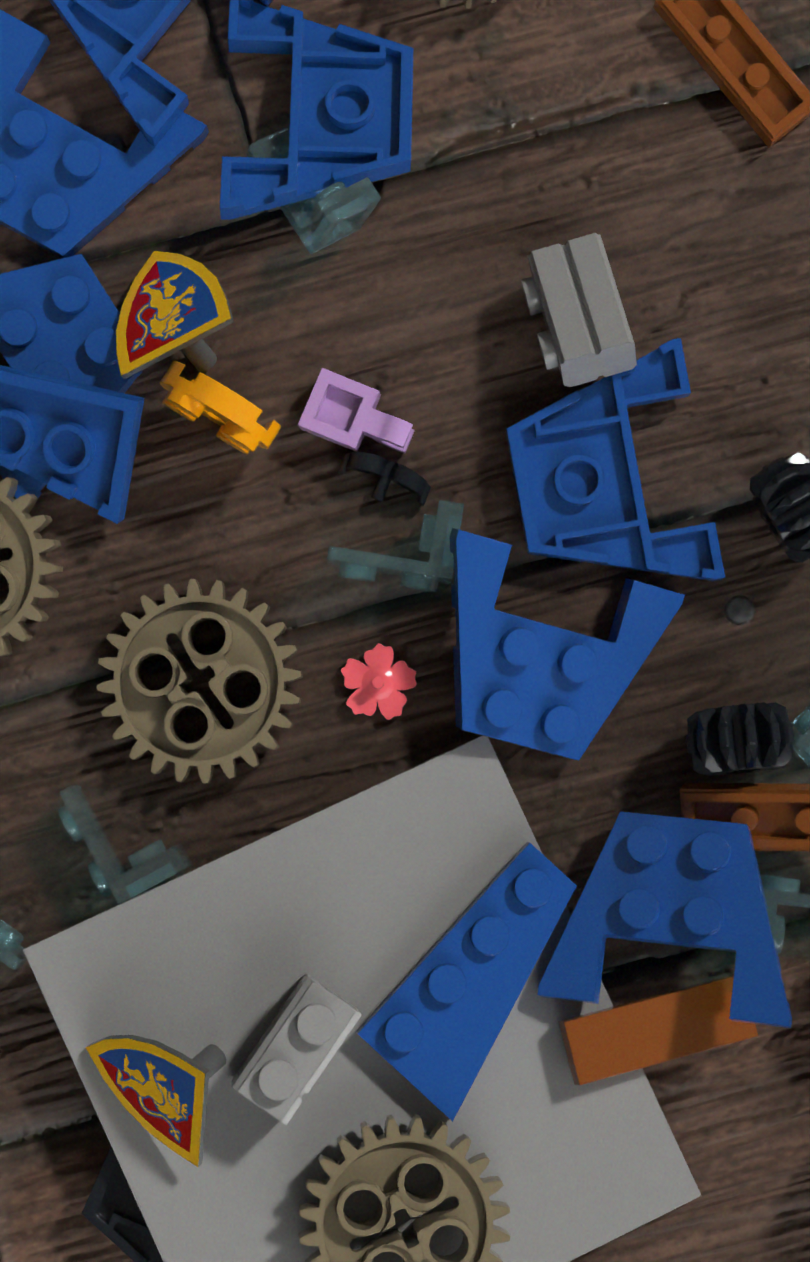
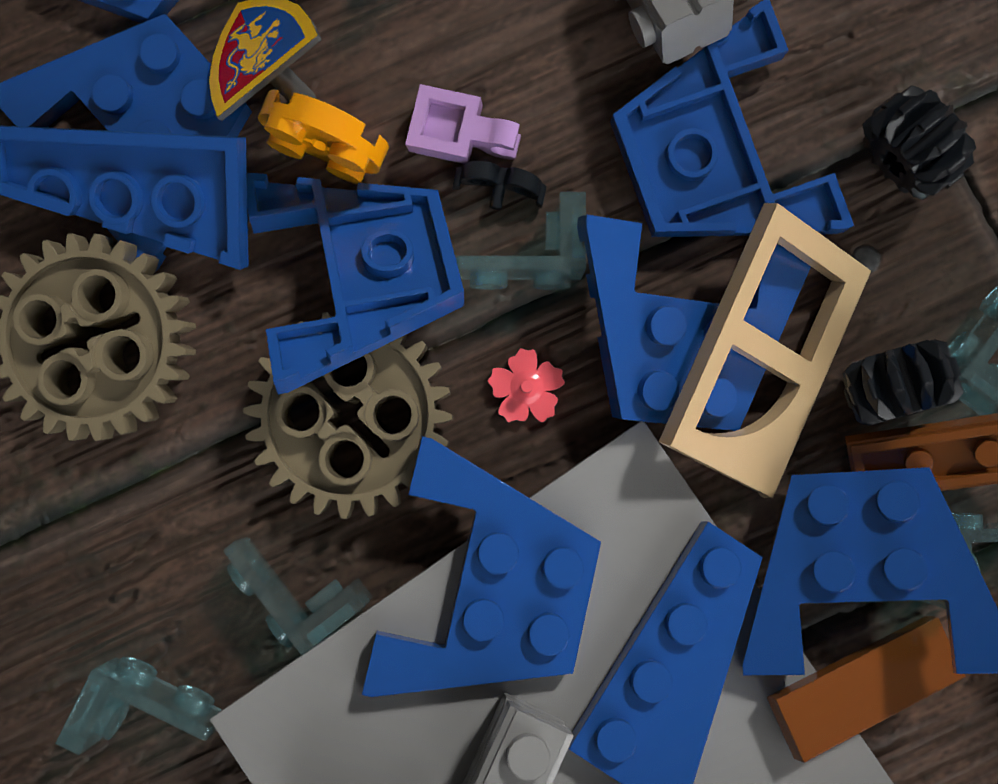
camera: 15 degrees left, 0 degrees up
(258, 540) = (384, 263): none -> blue wing
(334, 876) = (516, 594): none -> blue wing
(600, 783) = (762, 450): none -> tan window

